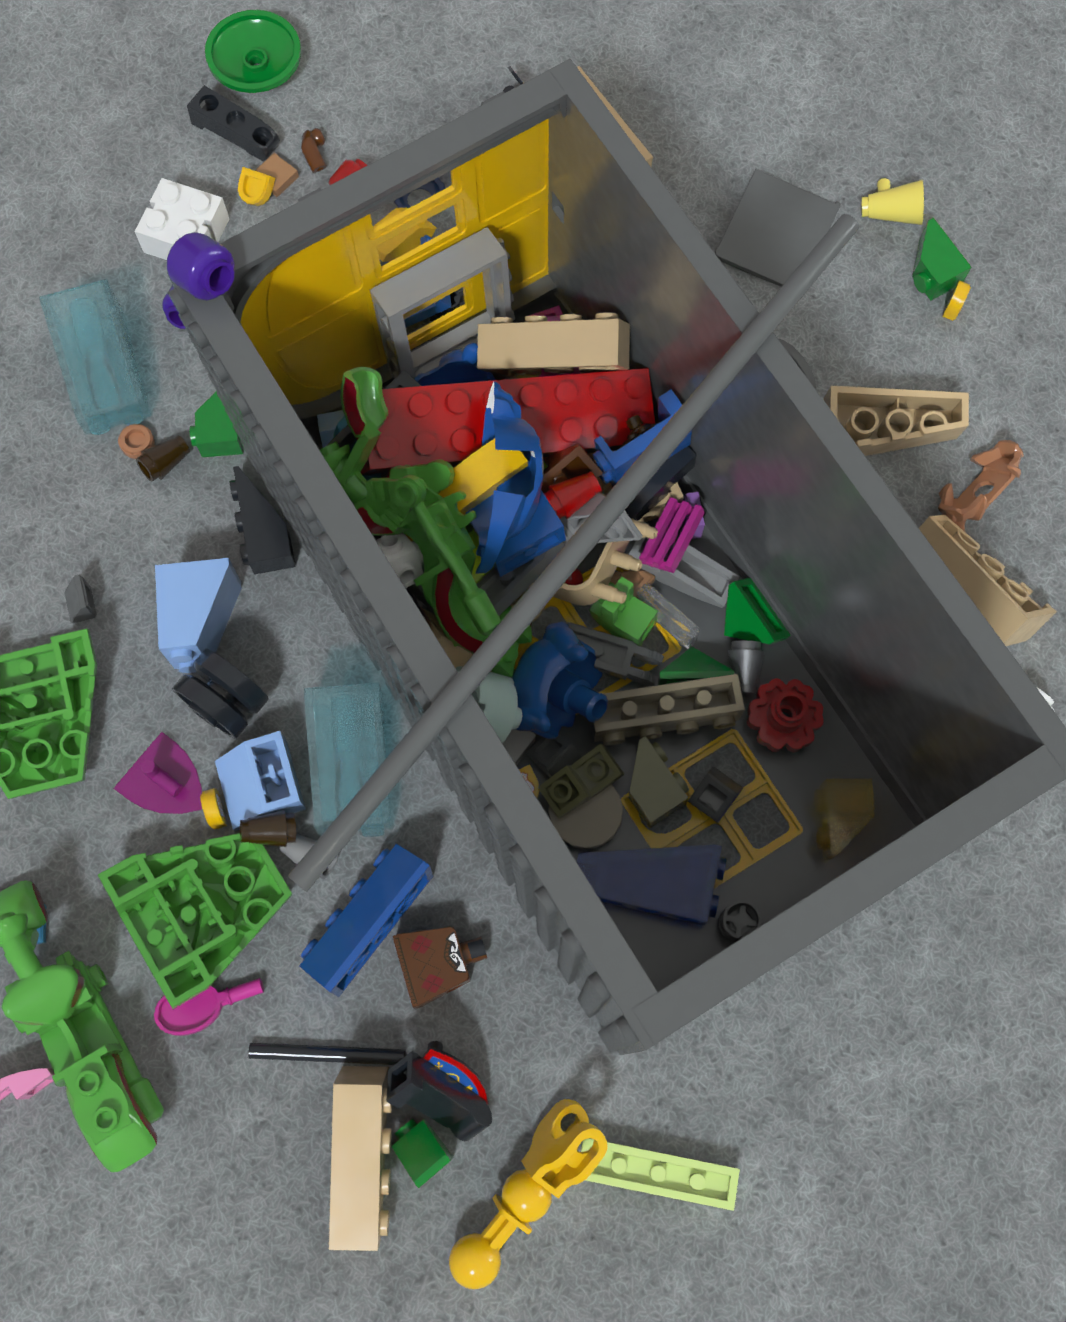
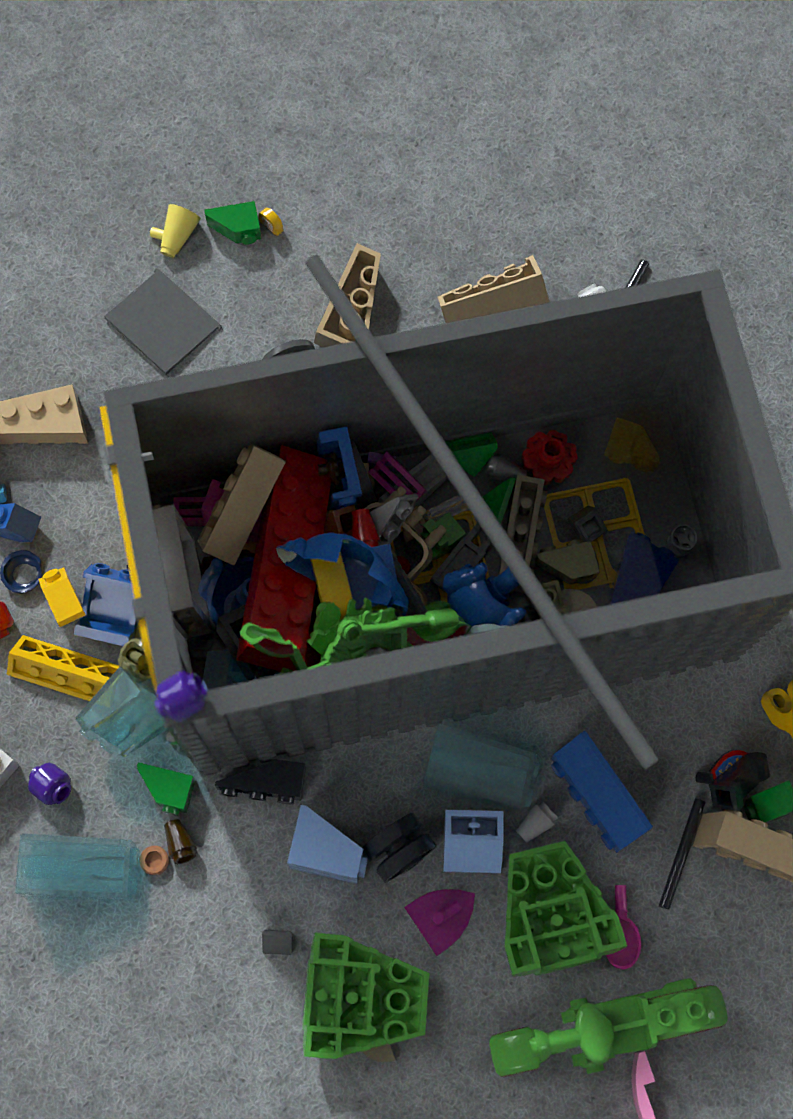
camera: 70 degrees left, 0 degrees up
(213, 808) = (479, 882): yellow tile -> none
(269, 829) = (515, 838): dark brown cone -> none
(435, 962) = (629, 767): reddish brown torso -> none
(999, 470) = (414, 248): nougat piece -> none

